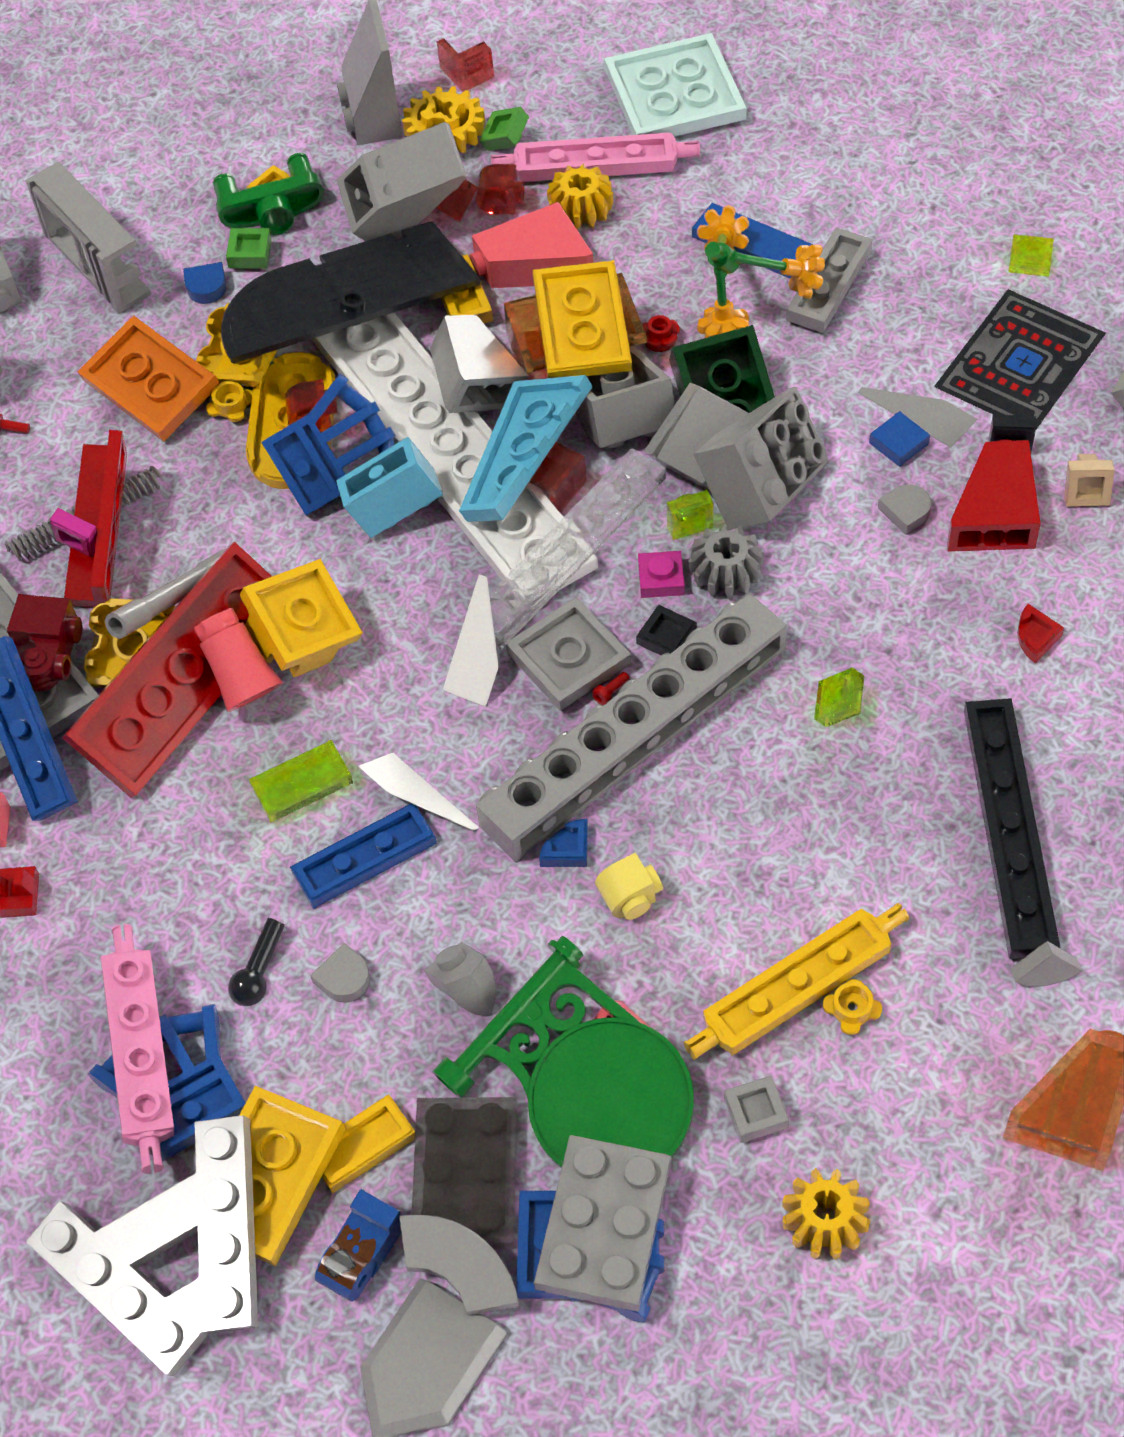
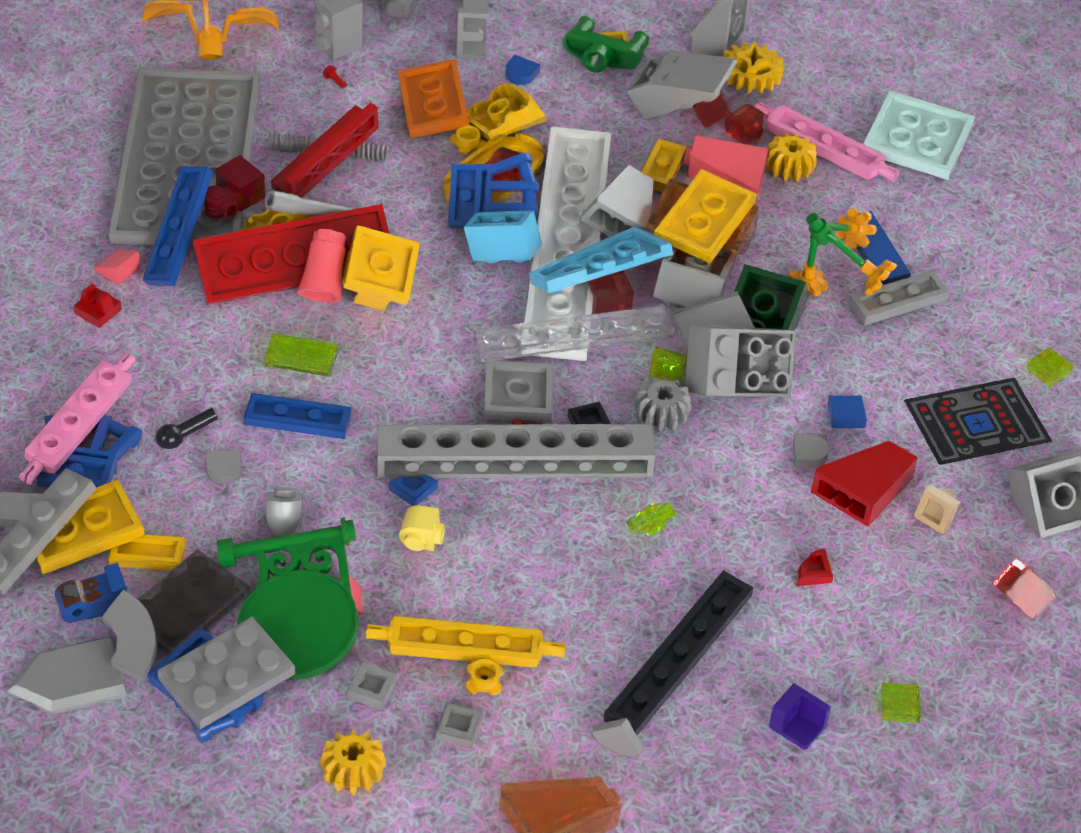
camera: 30 degrees right, 10 degrees down
(74, 532) = (302, 142): dark pink tile -> none
(249, 248) = (563, 66): bright green plate -> none
(343, 291) = (585, 117): black door -> none
(406, 784) = (357, 393): white sticker -> none
(467, 67) = (801, 46): clear red panel -> none
(475, 655) = (462, 353): white sticker -> none
(504, 128) = (785, 93): bright green plate -> none
(661, 333) = (761, 259): red plate -> none
(661, 574) = (619, 388): dark pink plate -> none
(878, 1080) = (459, 725): none -> light grey tile
(933, 415) = (883, 414): light grey sticker -> none
(1013, 428) = (922, 449): black tile -> none

